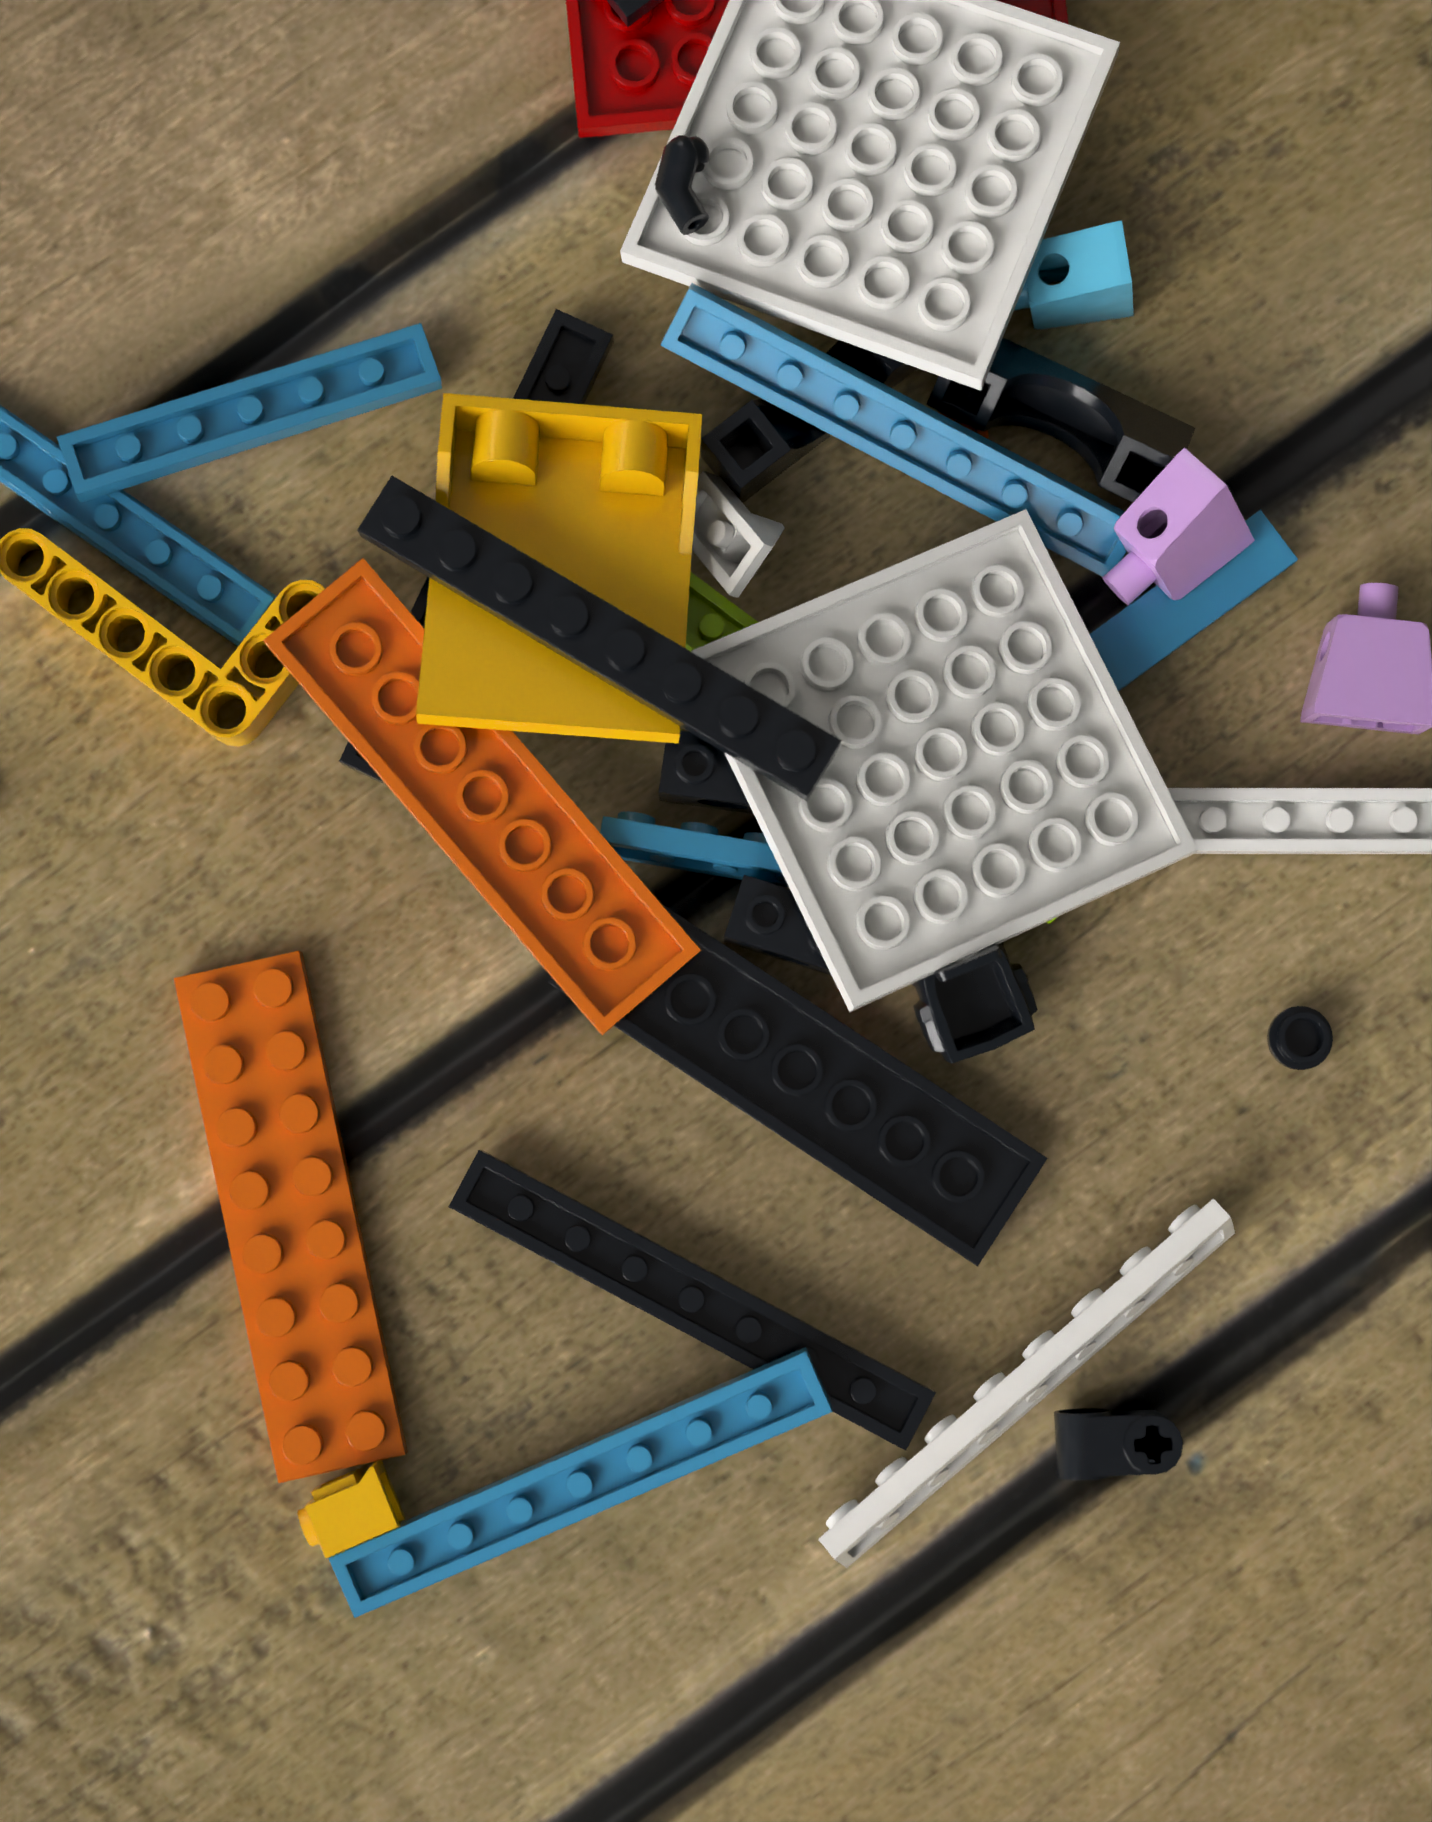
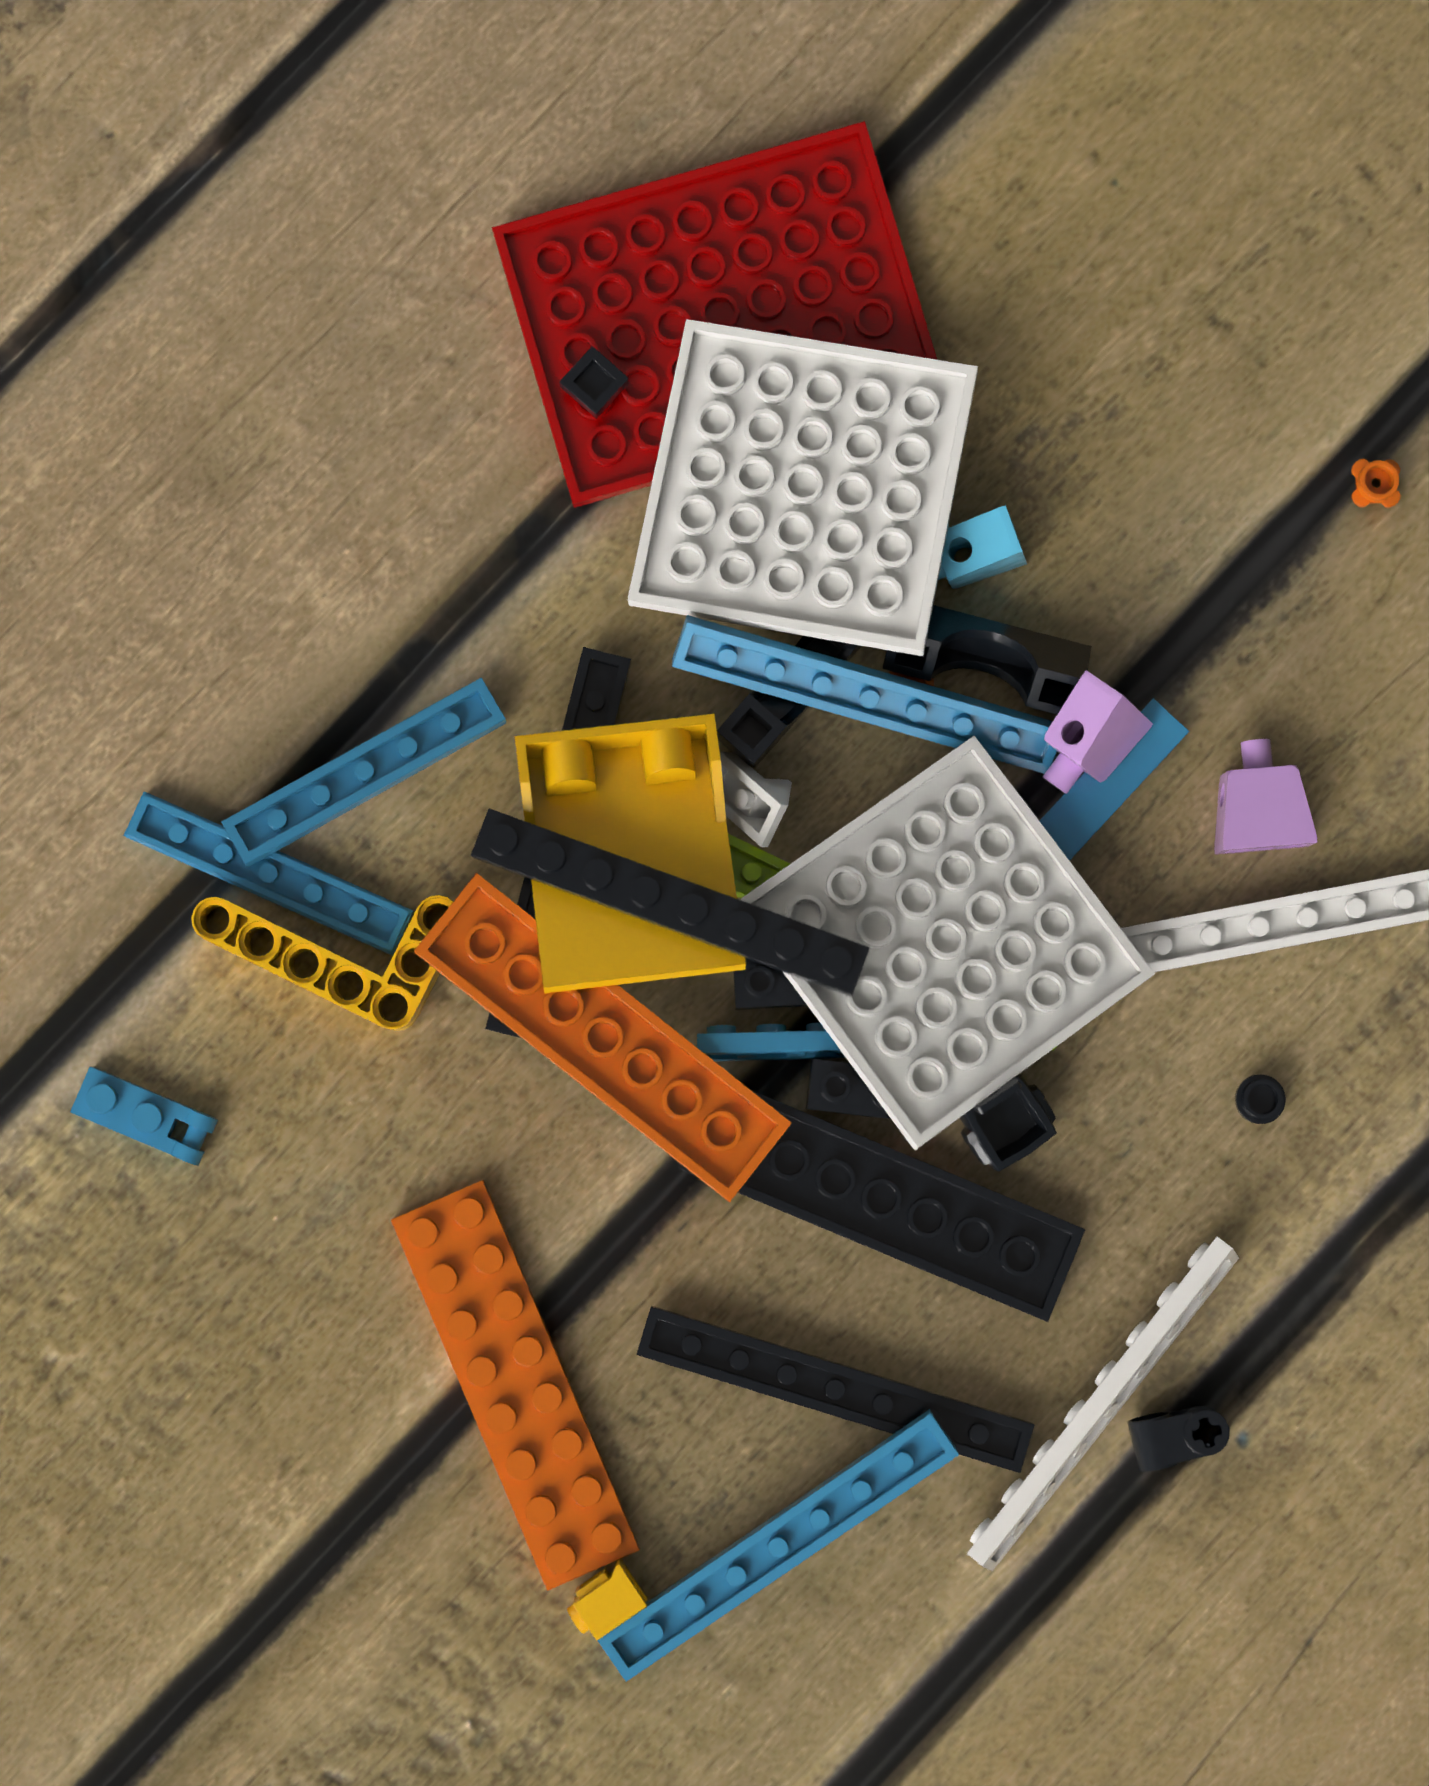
camera: 10 degrees left, 0 degrees up
(674, 180) = (659, 538): black arm -> none

